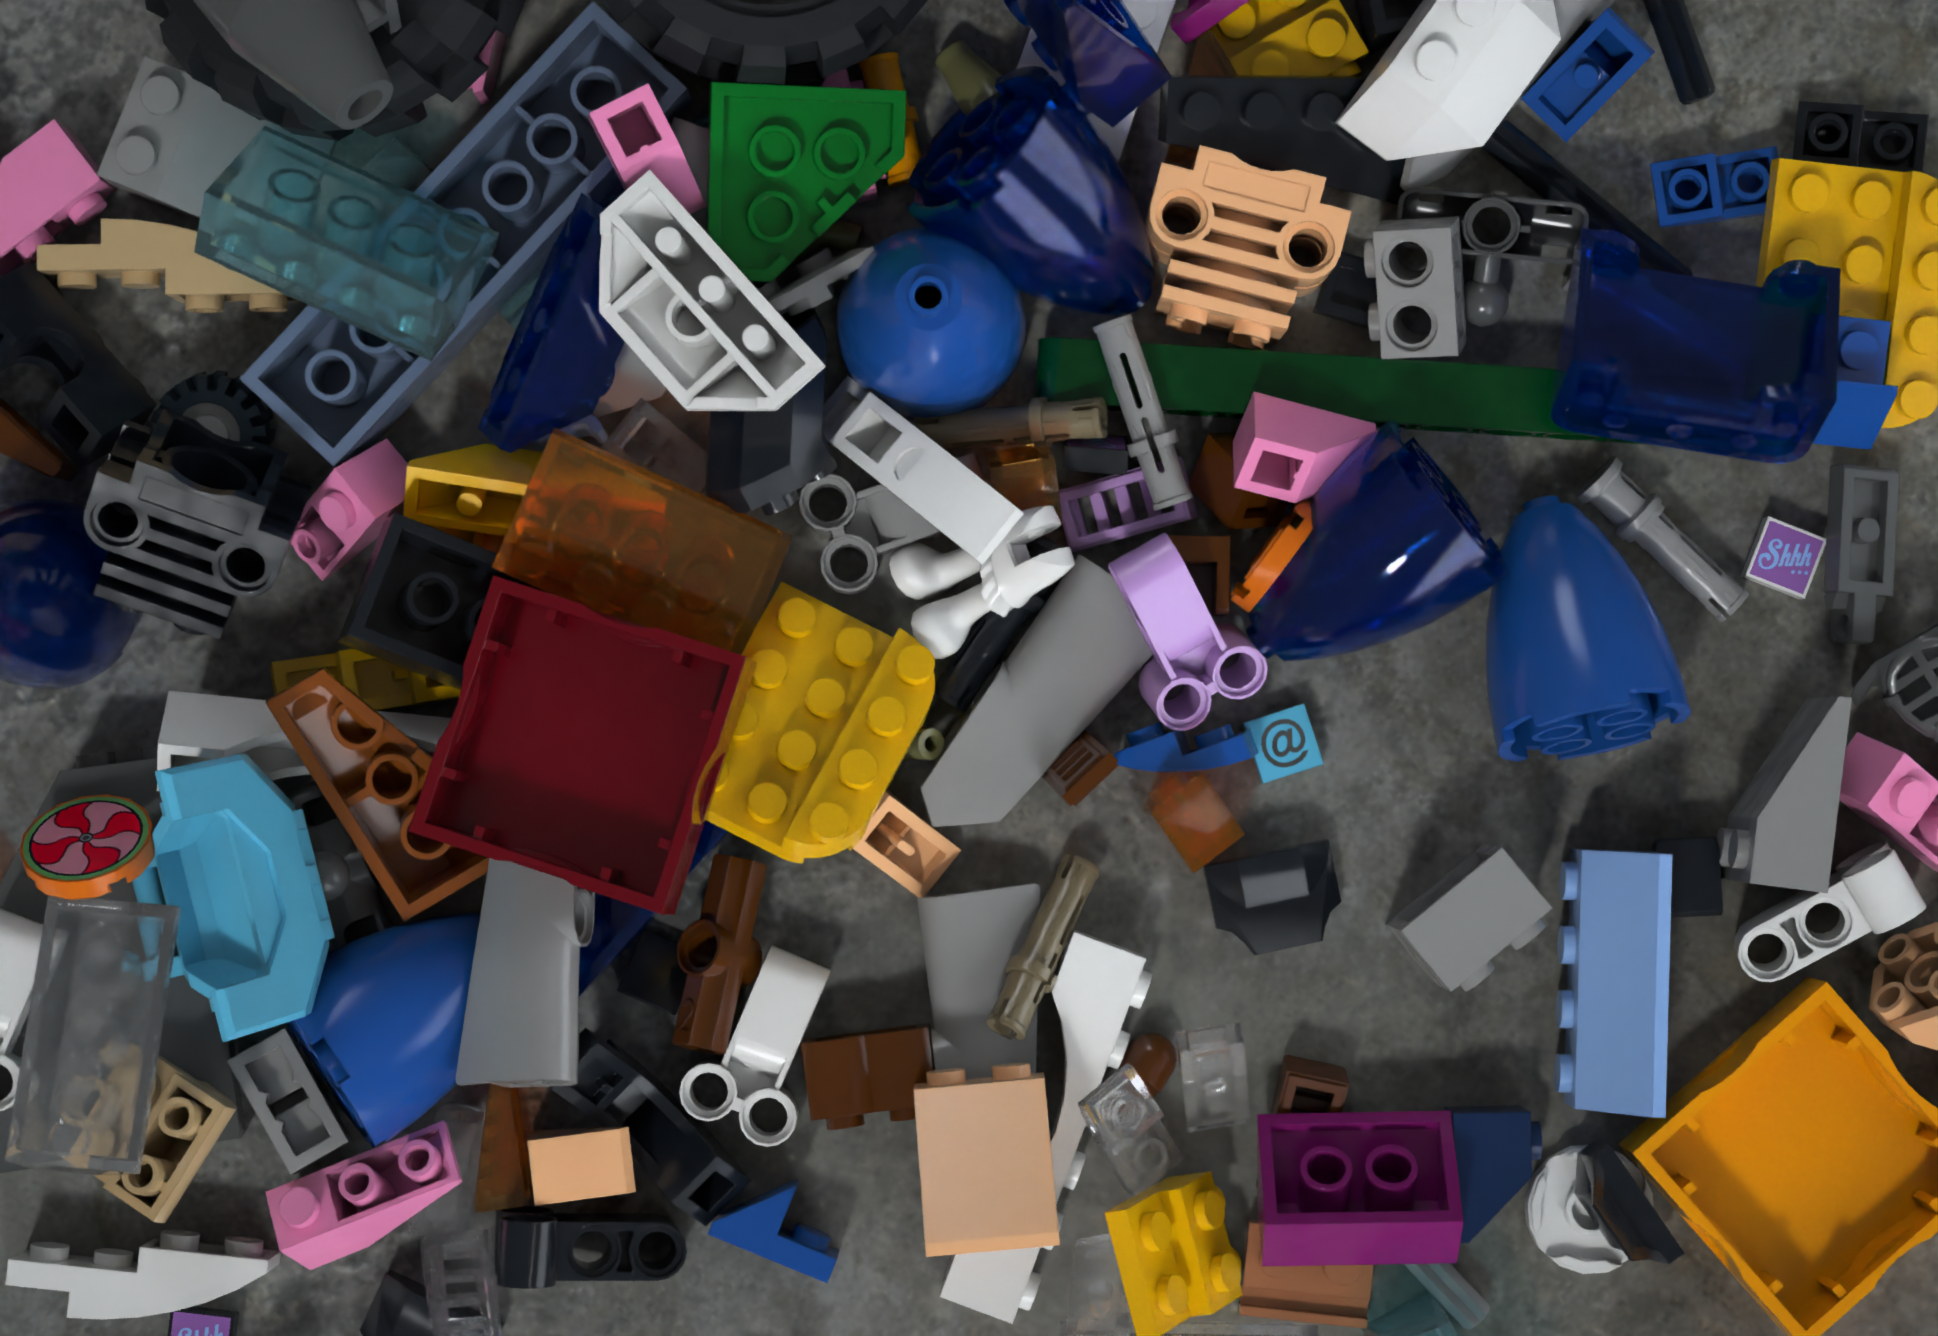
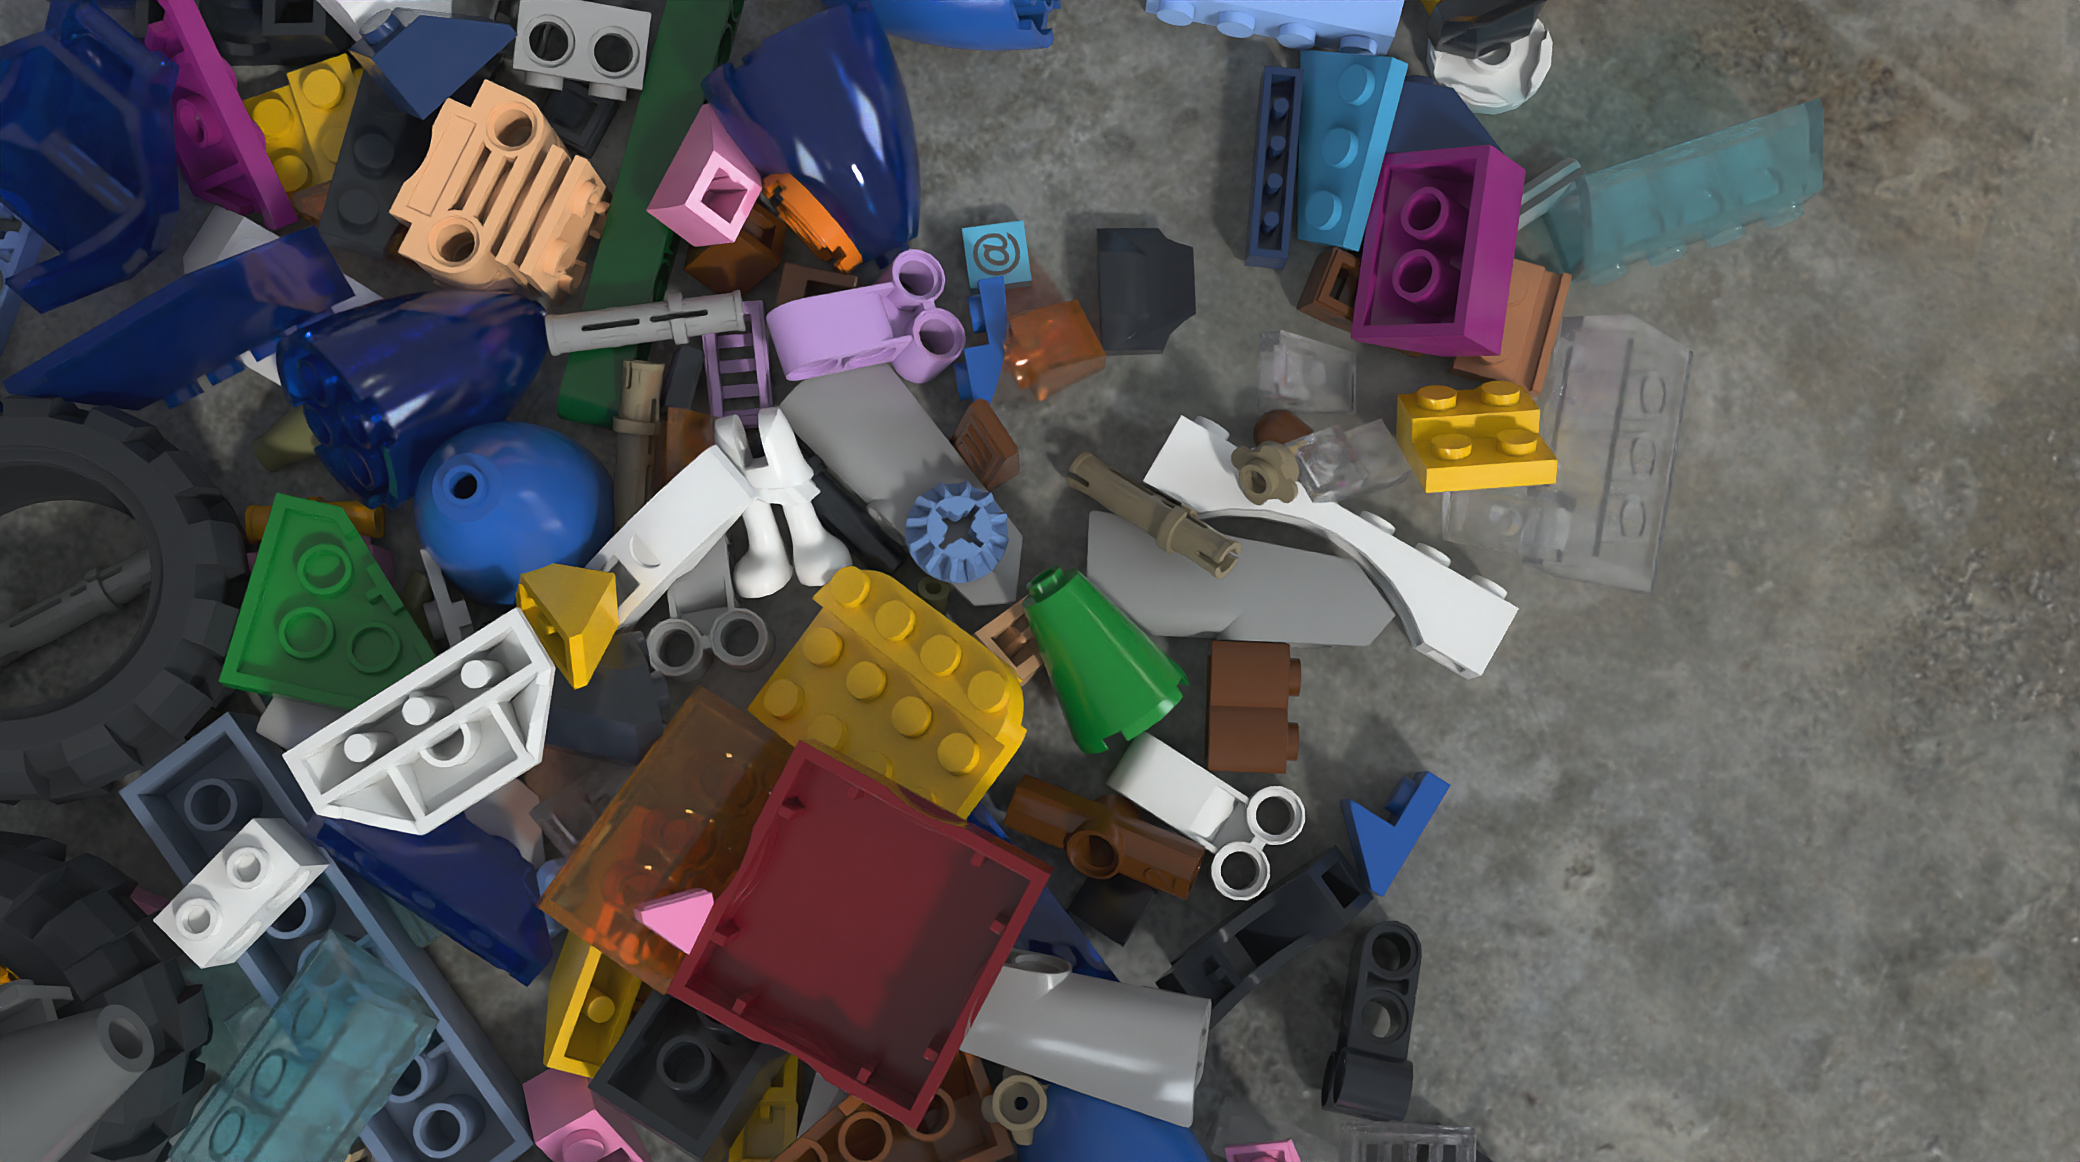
camera: 80 degrees left, 5 degrees down
(444, 902) = (1001, 1105): none -> dark tan plate
(504, 1164) = (1277, 1093): clear orange slope -> none
(518, 147) = (241, 892): none -> white brick
(564, 571) = (677, 916): none -> bright pink slope
(580, 1164) = (1291, 1014): light nougat slope -> none
(641, 139) = (247, 765): bright pink slope -> none
(836, 406) = (572, 615): none -> yellow slope
(884, 920) = (1098, 660): none -> green cone
(982, 729) = (961, 560): none -> medium blue gear
(985, 1161) = (1359, 598): light nougat slope -> none
(1099, 1053) = (1267, 472): none -> dark tan plate
(1368, 151) = (426, 54): none -> dark blue slope
(1422, 1008) = (1274, 167): none -> dark blue piece
(1460, 1073) = (1343, 141): none -> dark azure wing
(1470, 918) = (1195, 100): light grey brick -> none

